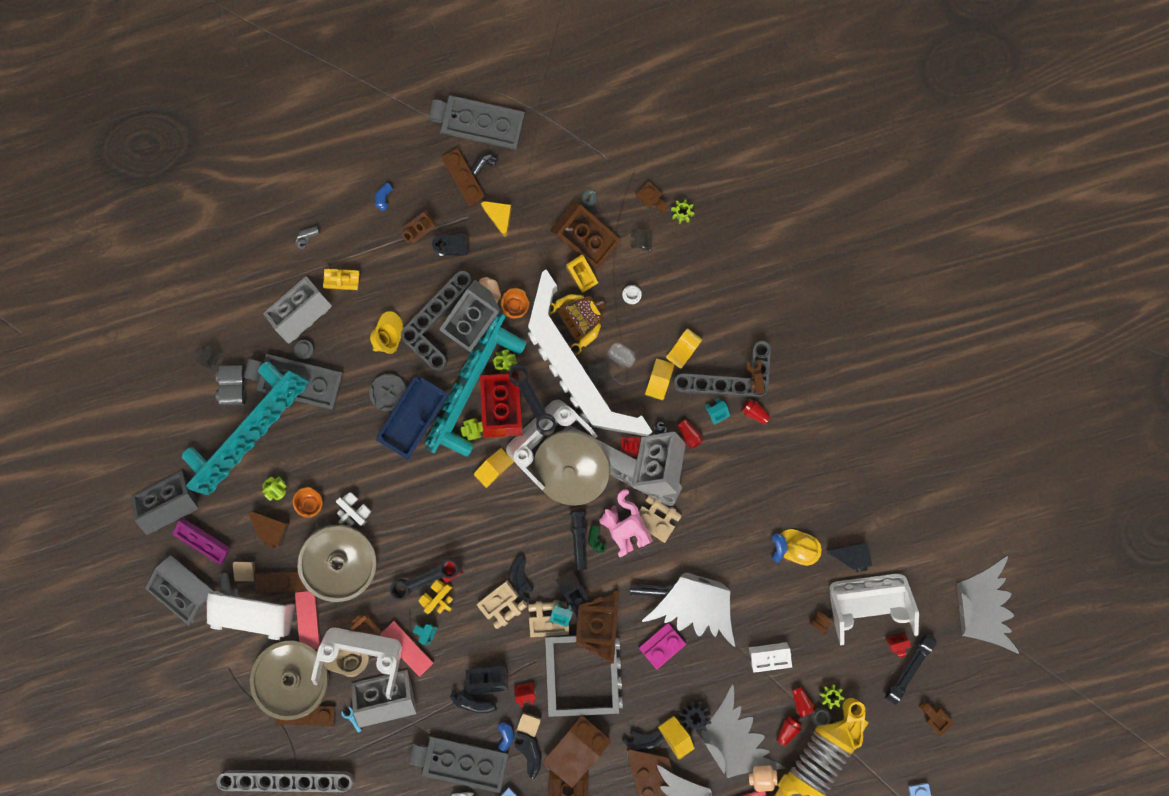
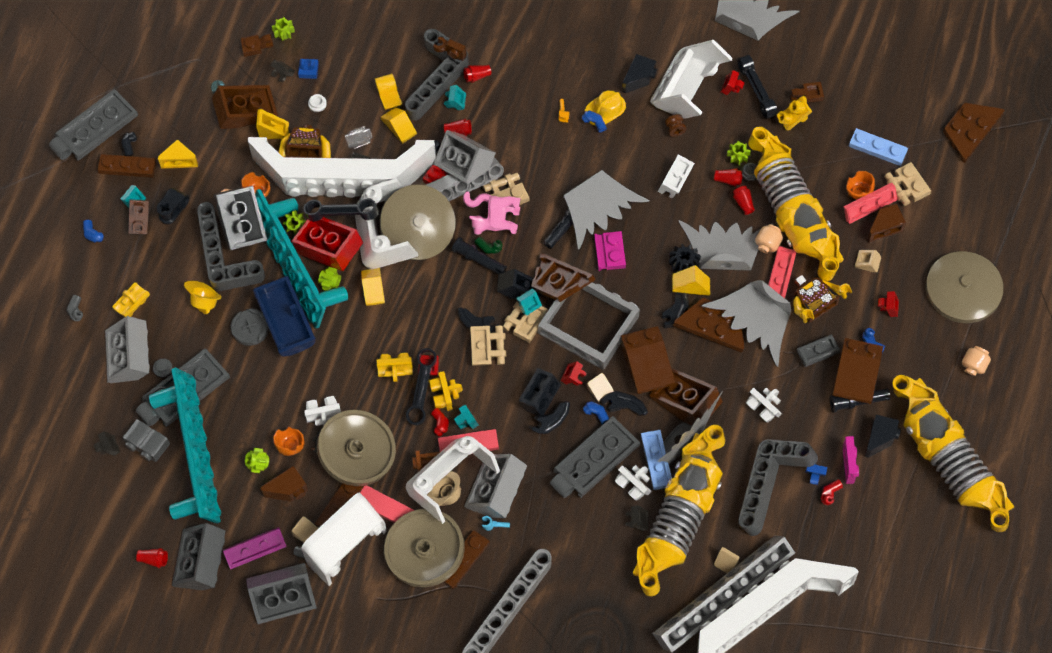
camera: 55 degrees left, 20 degrees down
(141, 466) = (153, 557): none -> red cone
(409, 615) = (442, 422): none -> red arm
(430, 542) = (394, 367): none -> yellow hips
(435, 207) = (132, 193): none -> teal tile
(660, 261) = (308, 68): none -> blue tile
(766, 517) = (563, 115): none -> light orange hand
(903, 721) = (795, 113): none -> yellow hips

